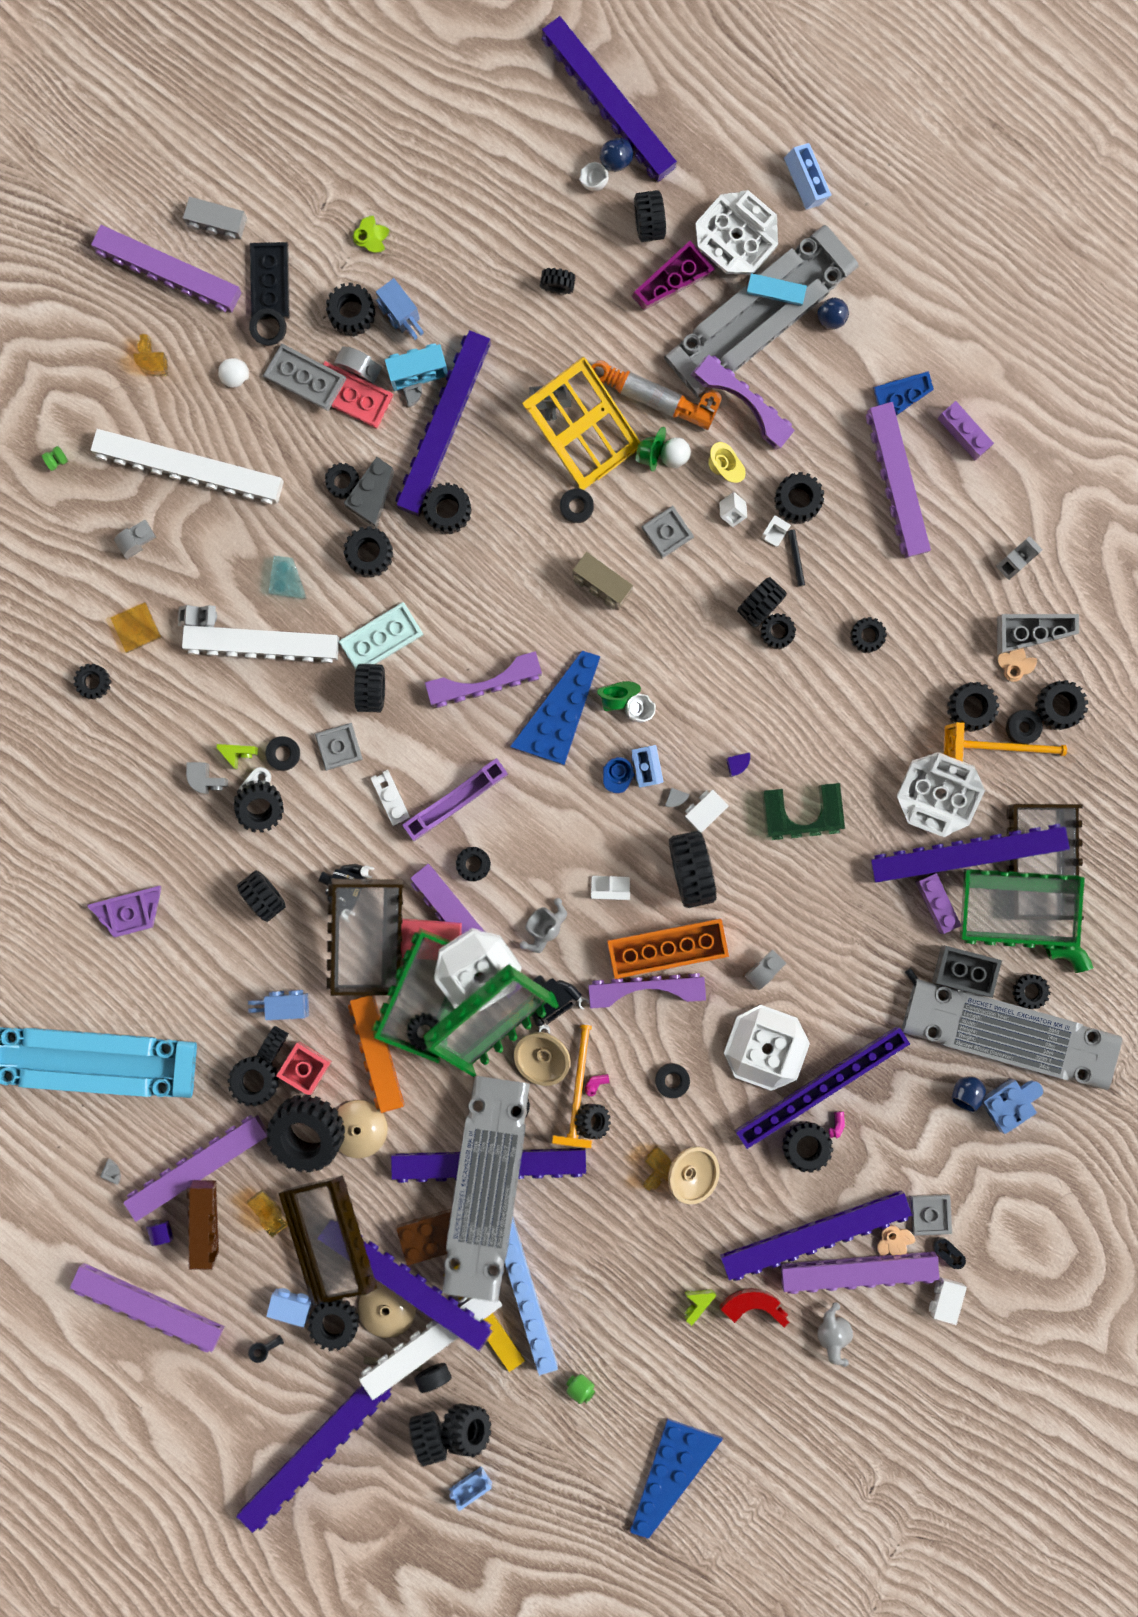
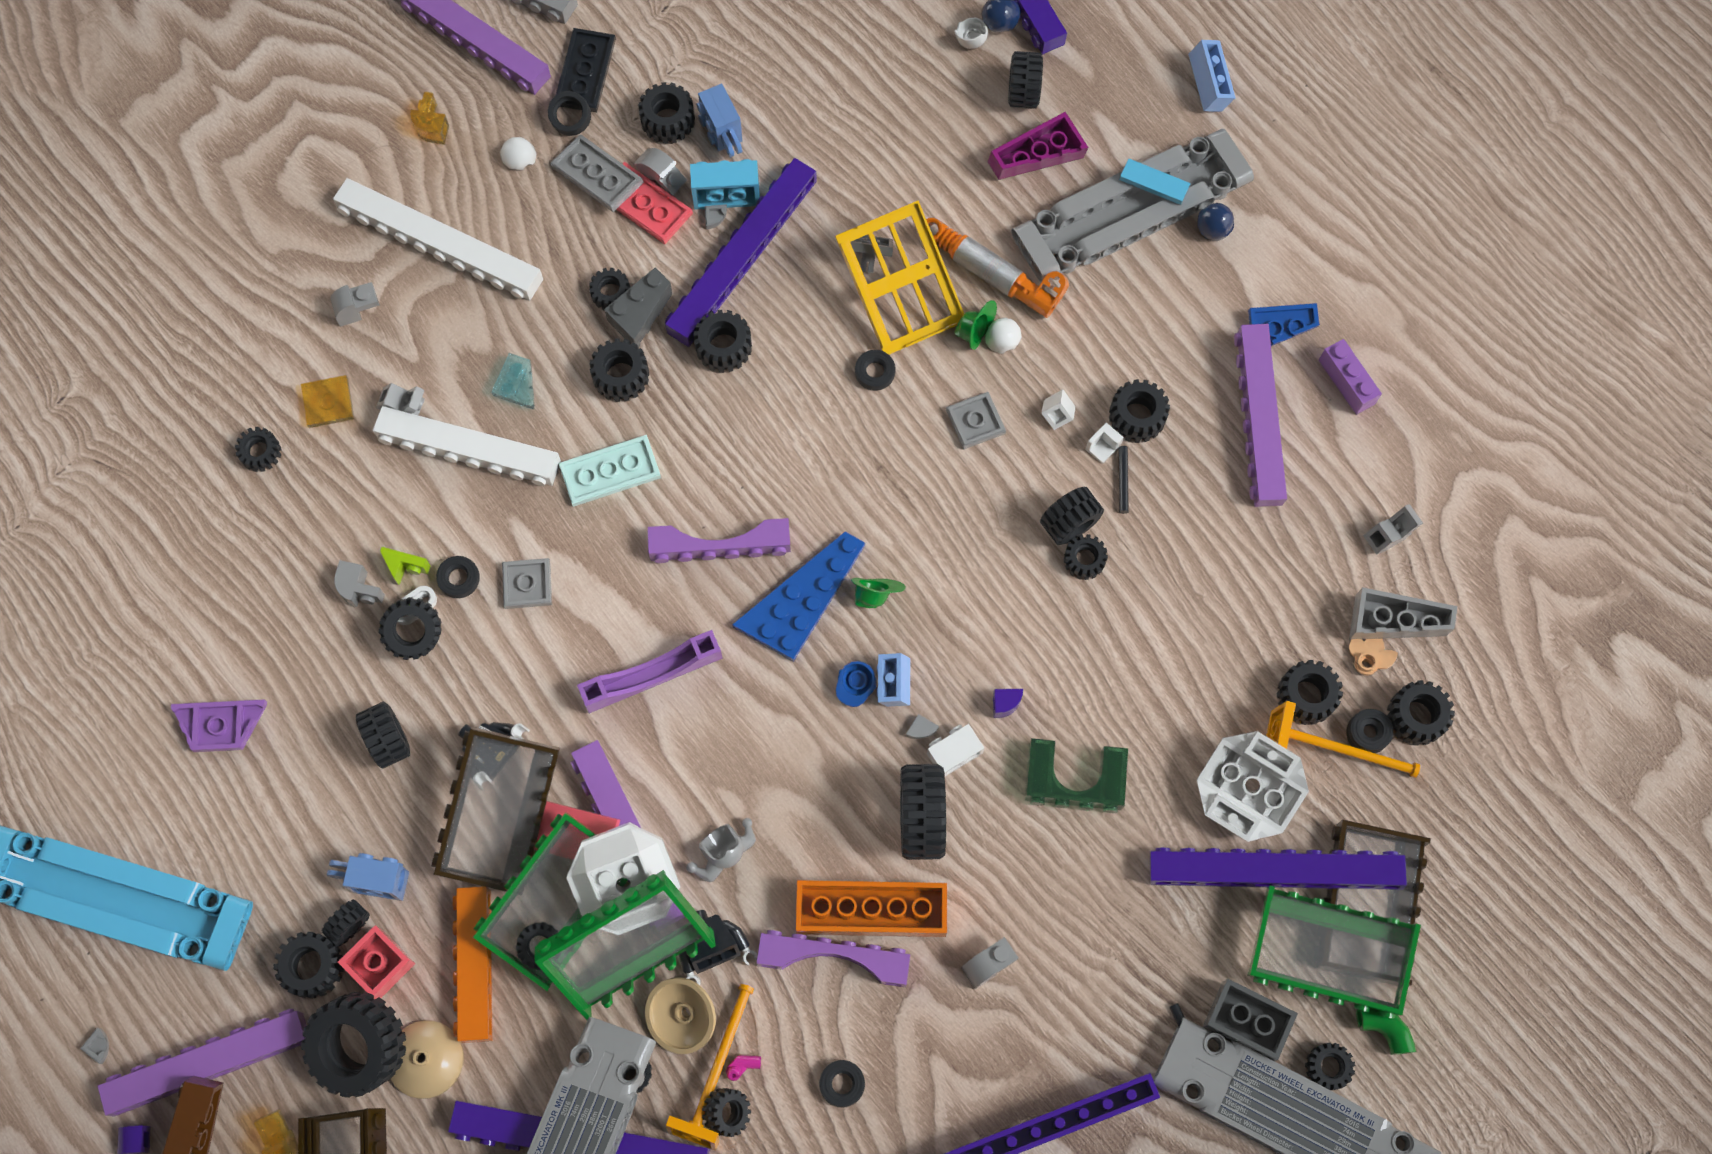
camera: 15 degrees right, 15 degrees down
(50, 460) = (286, 203): bright green wheel -> none
(369, 688) = (580, 518): black tyre -> none
(374, 235) = (711, 45): lime plate -> none
(390, 798) = (572, 655): white plate -> none
(473, 852) = (660, 767): black tyre -> none
(557, 281) = (906, 127): black tyre -> none
(602, 581) = (885, 455): dark tan brick -> none
(610, 887) = (816, 820): white panel -> none
(640, 708) = (899, 610): white hair -> none
(726, 463) = (1059, 355): light yellow piece -> none
(742, 215) = (1126, 99): white piece -> none
(746, 1041) = (969, 1094): white piece -> none
(772, 427) = (1064, 255): medium lavender arch -> none
(878, 629) = (1185, 593): black tyre -> none
(938, 903) = (1226, 926): medium lavender brick -> none

